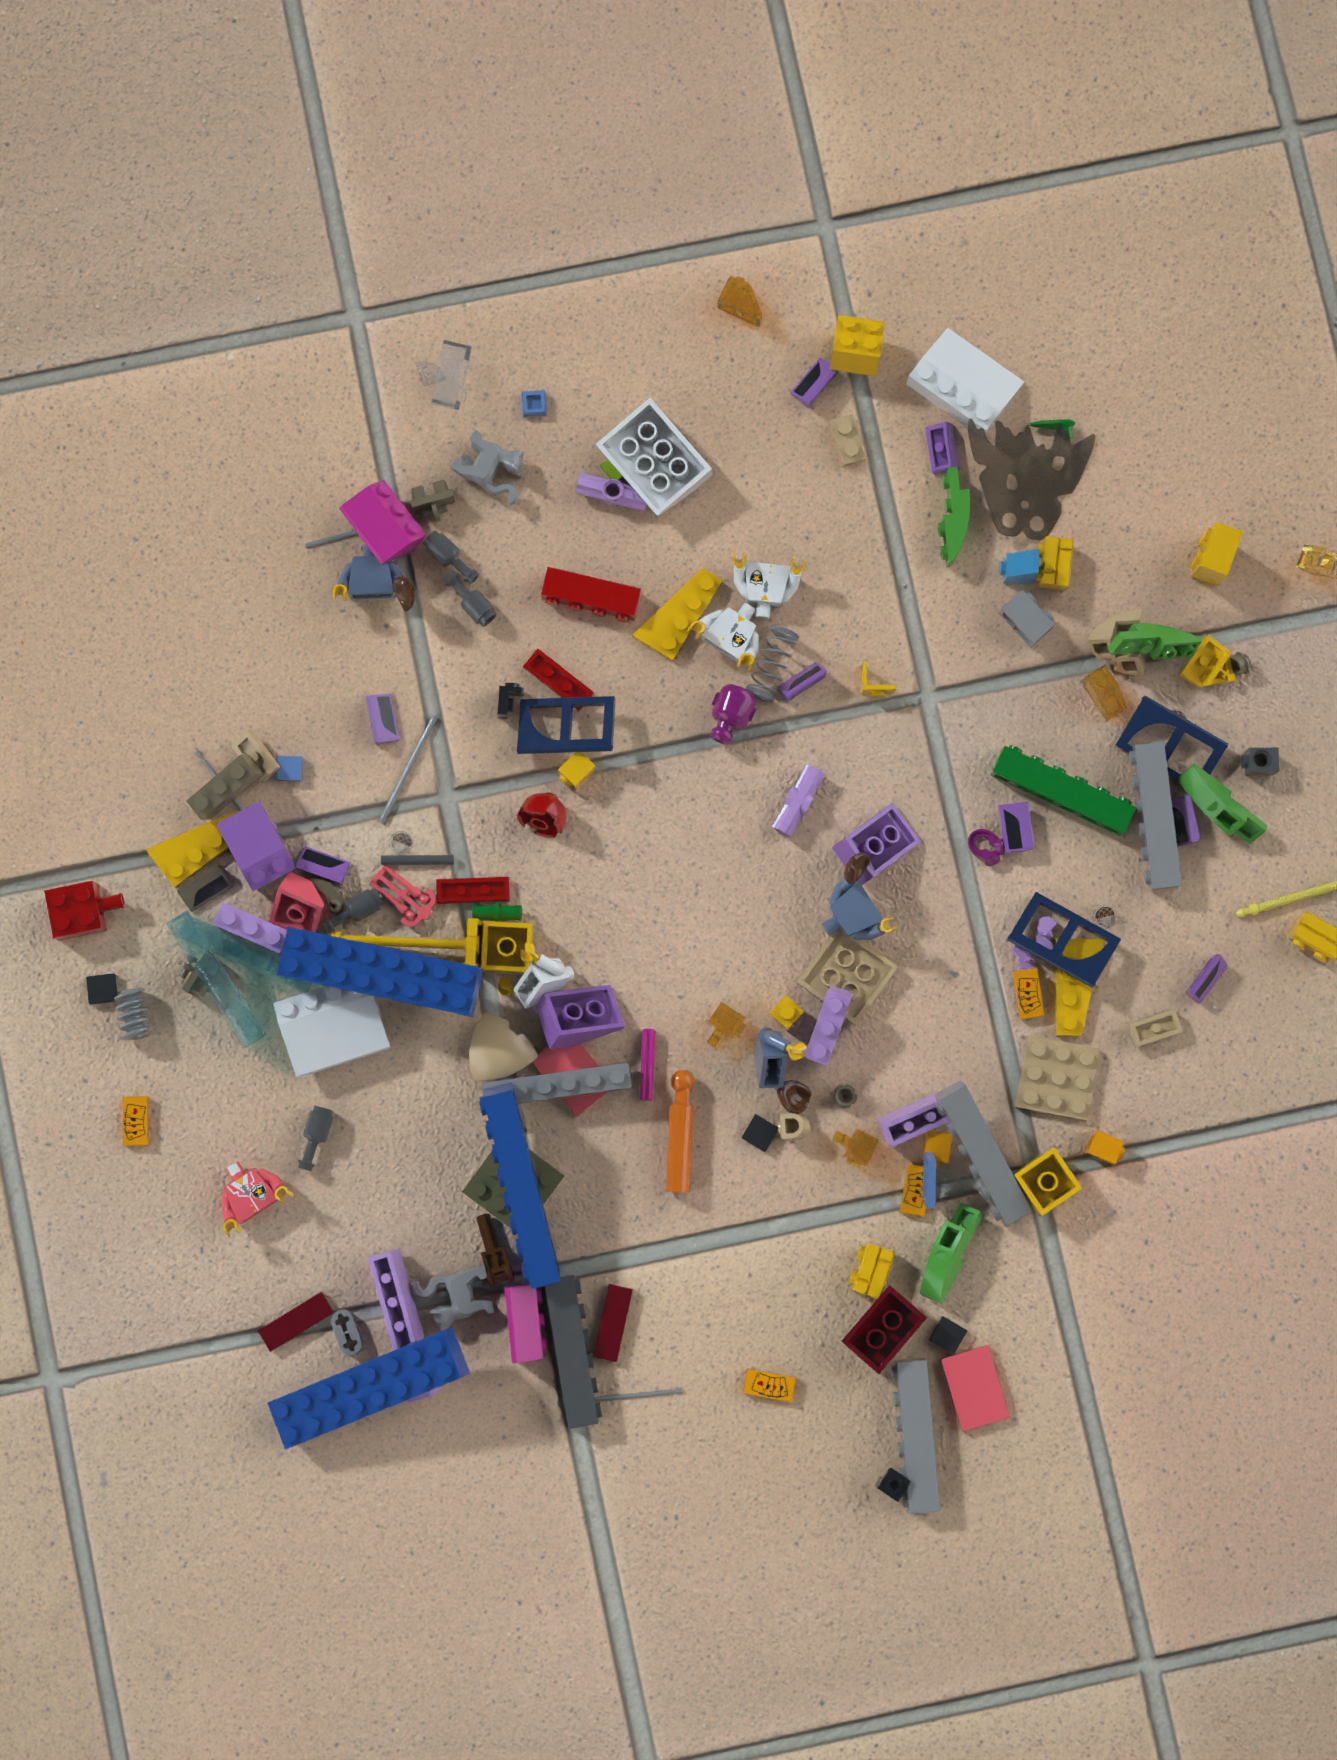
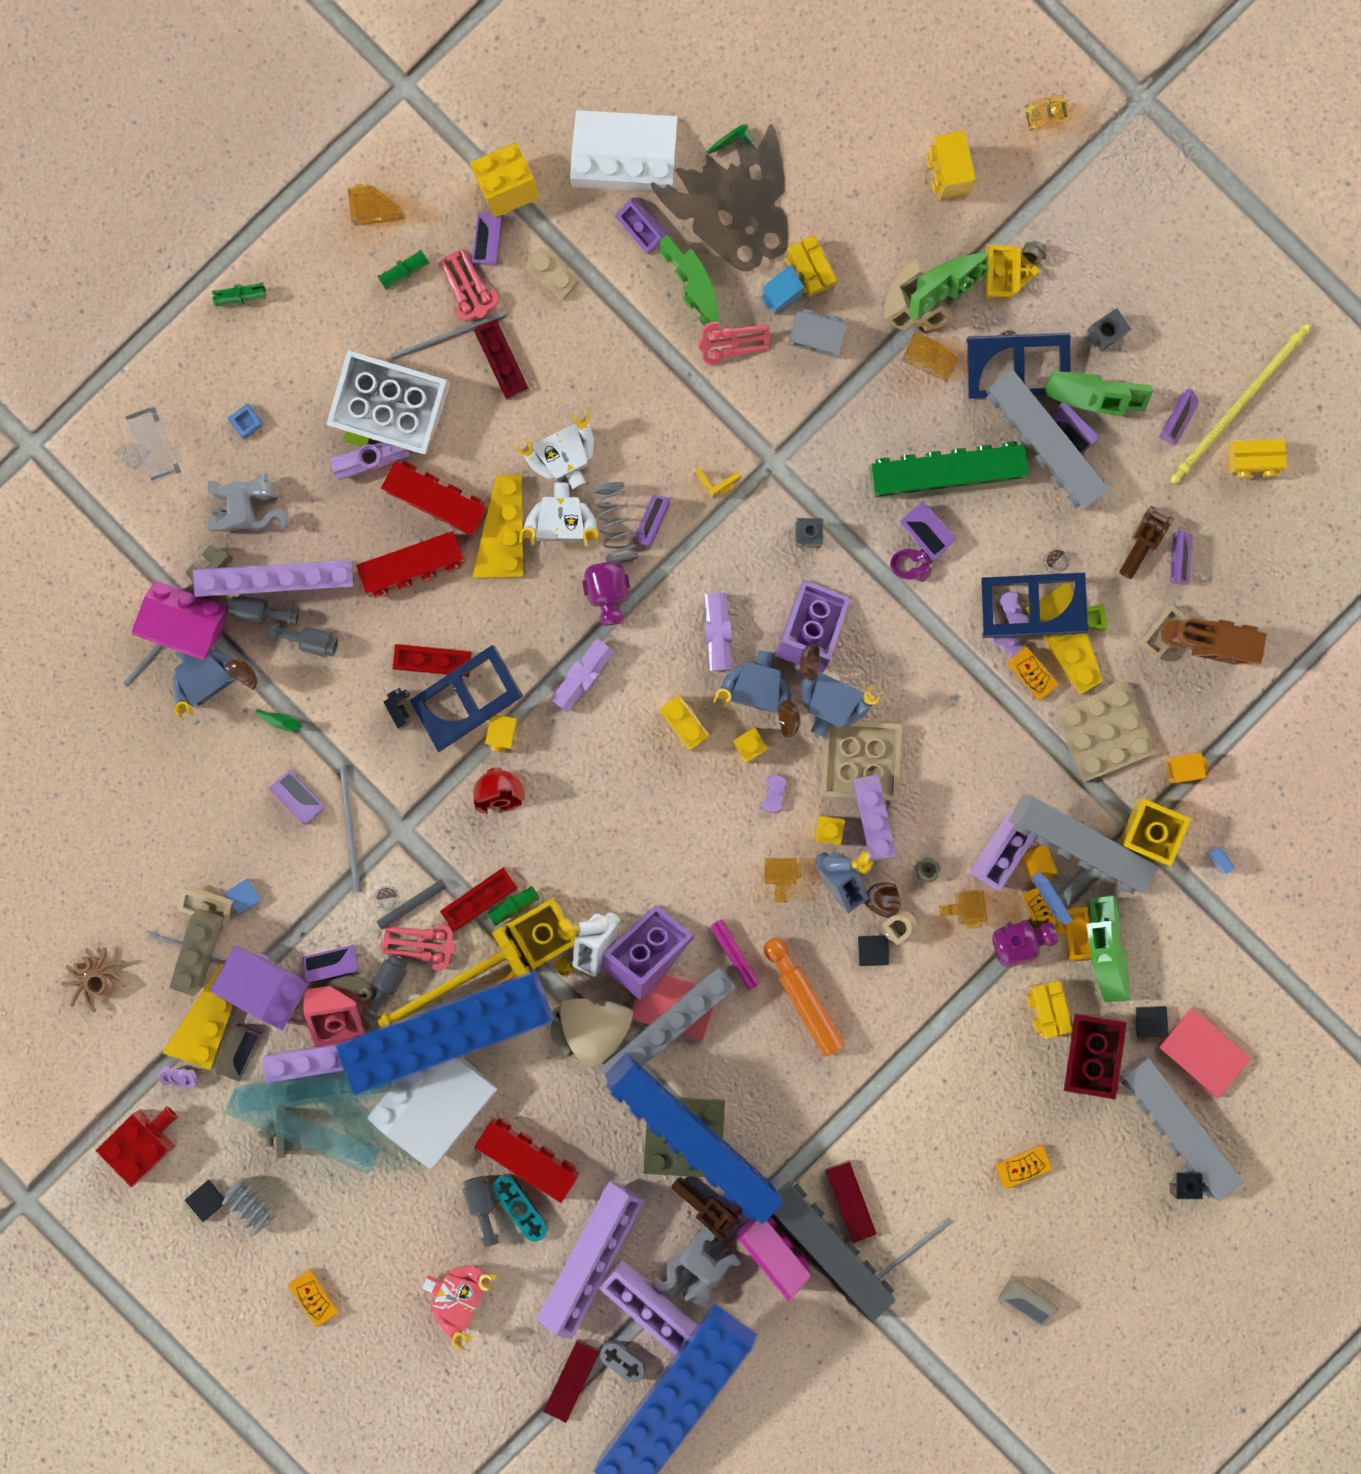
camera: 30 degrees left, 5 degrees up
(130, 757) = (93, 978): none -> medium nougat animal
(145, 877) = (178, 1077): none -> lavender piece
(337, 1149) = (537, 1219): none -> teal beam
(375, 1232) = (590, 1260): none -> lavender brick
(376, 1120) = (527, 1160): none -> red brick
(408, 650) = (279, 720): none -> green bar
(466, 1035) = (557, 1033): none -> dark tan arm
(477, 535) = (272, 577): none -> lavender brick
(593, 303) = (239, 294): none -> green pin
(642, 555) = (435, 499): none -> red brick
(669, 766) = (582, 675): none -> lavender piece
(703, 1497) = (1027, 1302): none -> dark tan slope
(725, 854) = (684, 722): none -> yellow brick
(732, 364) = (403, 269): none -> green pin
(736, 437) = (448, 335): none -> light grey piece
(761, 957) = (774, 793): none -> lavender piece
(764, 481) = (501, 359): none -> dark red tile
(766, 905) = (750, 745): none -> yellow brick
(772, 433) = (480, 311): none -> coral piece
(804, 867) = (763, 689): none -> sand blue torso
(881, 1201) = (1020, 943): none -> magenta piece
(920, 768) = (809, 532): none -> dark grey brick
(932, 1224) = (1077, 934): none -> light orange tile
(933, 570) = (706, 344): none -> coral piece
(1085, 1239) = (1220, 860): none -> medium blue tile
(1107, 982) = (1097, 617): none -> lime tile
(1189, 944) = (1147, 536): none -> reddish brown connector
(1192, 1059) = (1216, 640): none -> dark orange brick
(1275, 867) = (1179, 417): none -> medium lavender slope

